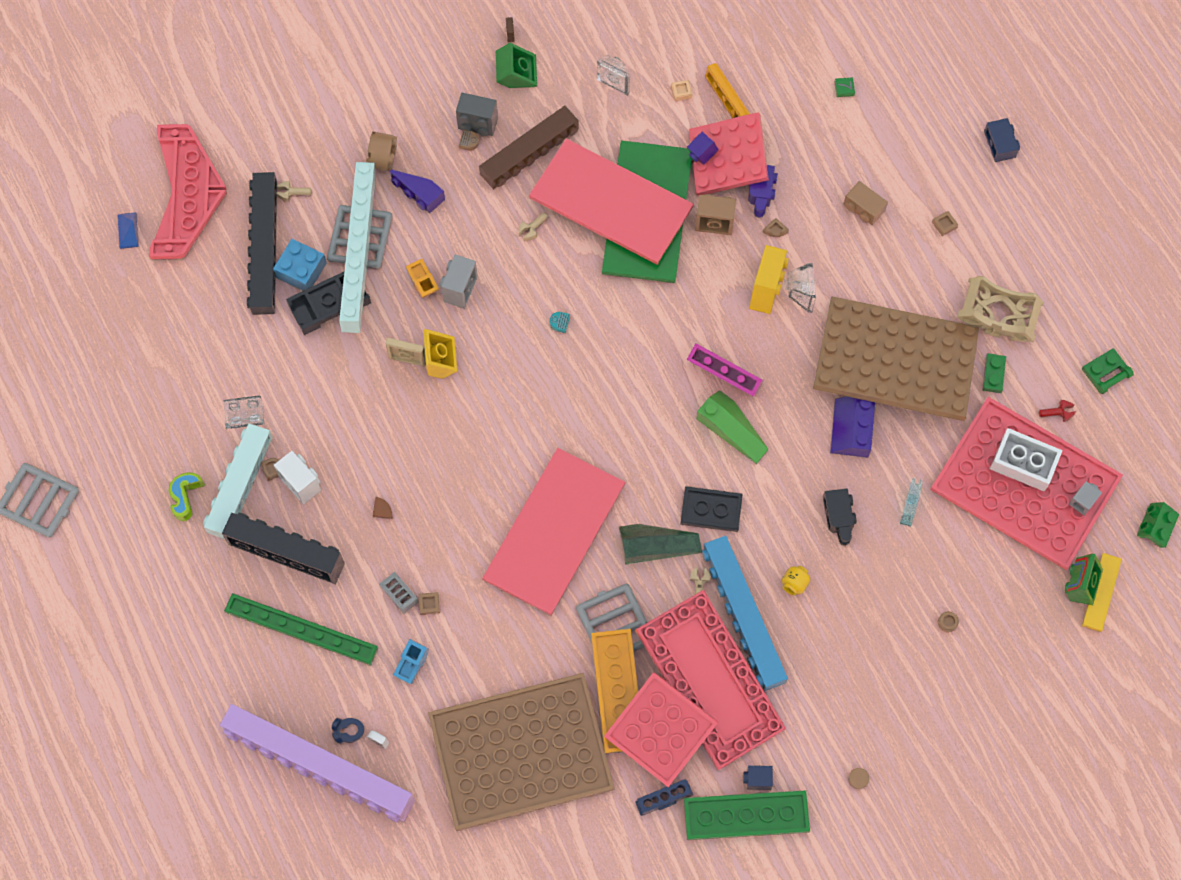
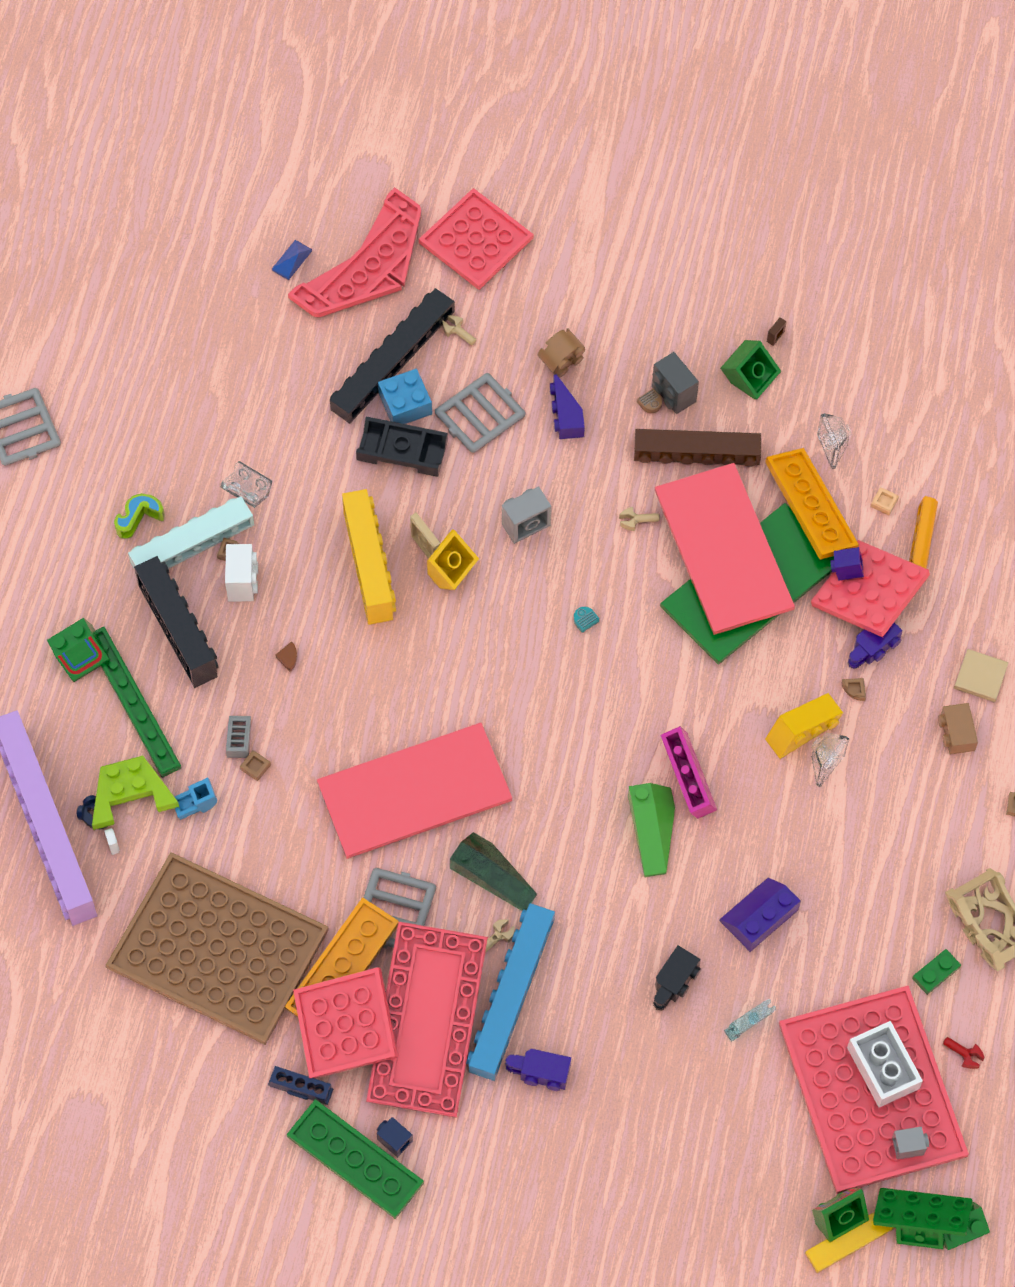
camera: 40 degrees right, 5 degrees down
(231, 624) = (78, 649): none -> green slope
(247, 118) = (476, 238): none -> coral plate
(352, 688) = (128, 782): none -> lime wing
(357, 248) = (464, 418): light aqua brick -> none
(377, 395) = (369, 556): none -> yellow brick
(421, 278) = (497, 487): light orange brick -> none
(639, 127) = (811, 502): none -> light orange plate
(711, 509) = (567, 882): black tile -> none
(715, 214) = (807, 631): medium nougat brick -> none
(795, 580) = (581, 1000): yellow head -> none
(811, 648) = (541, 1068): none -> dark purple hinge
(846, 157) = (981, 675): none -> tan tile
(858, 778) = (480, 1211): medium nougat tile -> none
(897, 358) = (854, 885): medium nougat plate -> none
(948, 621) = (686, 1148): medium nougat tile -> none
(1134, 538) = (922, 1217): none -> green bracket

